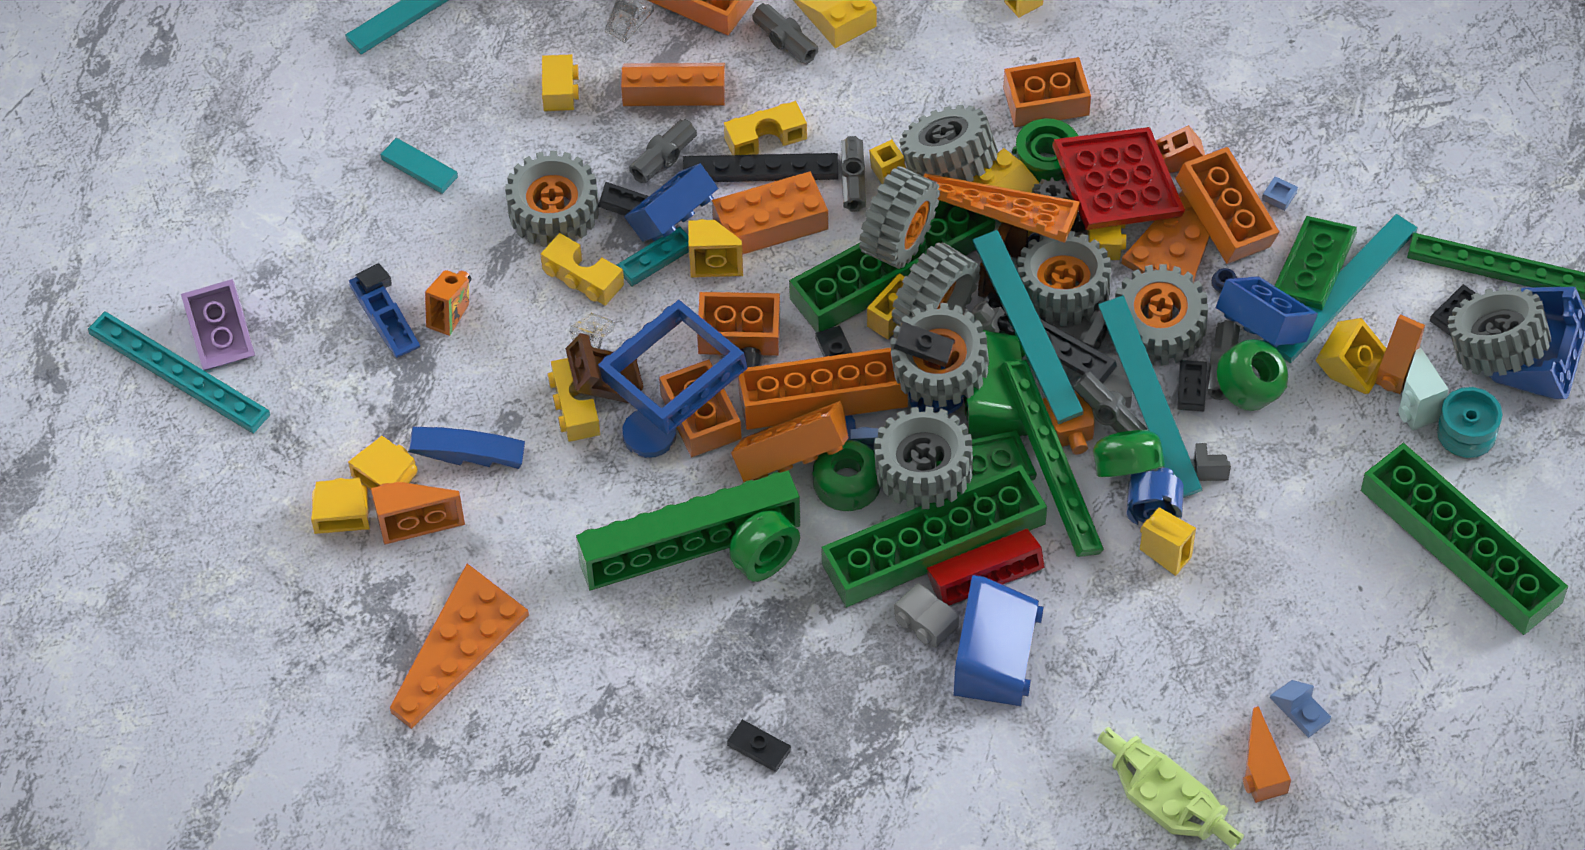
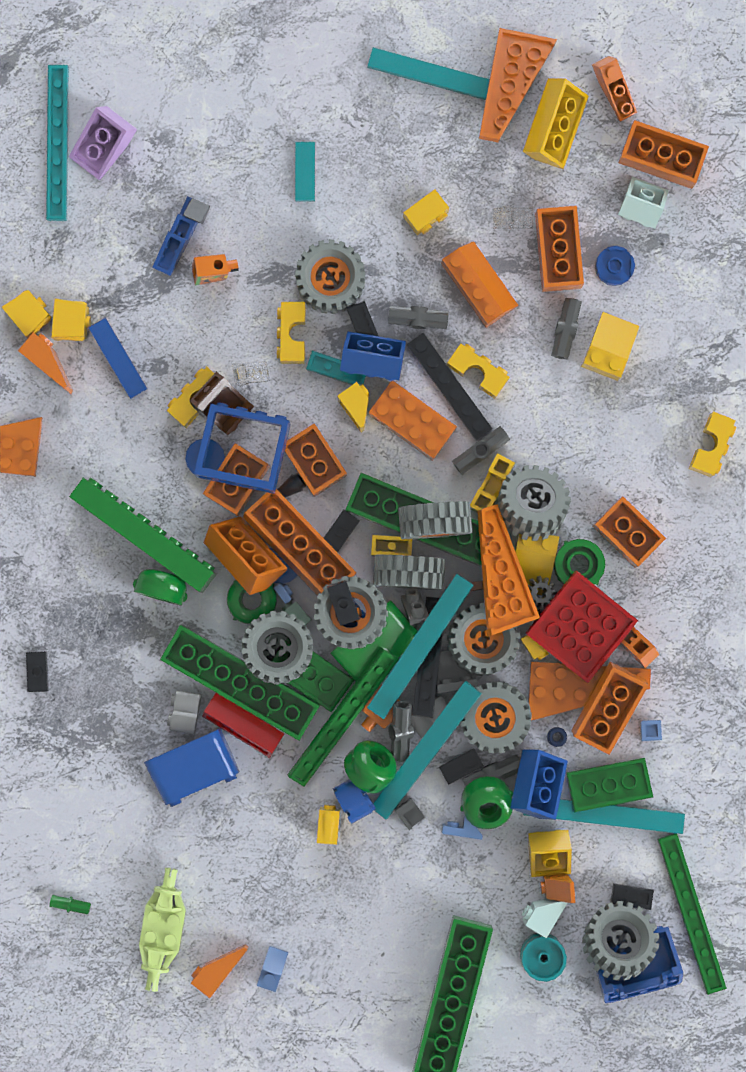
camera: 55 degrees right, 30 degrees up
(1266, 420) = (466, 830): none -> medium blue slope

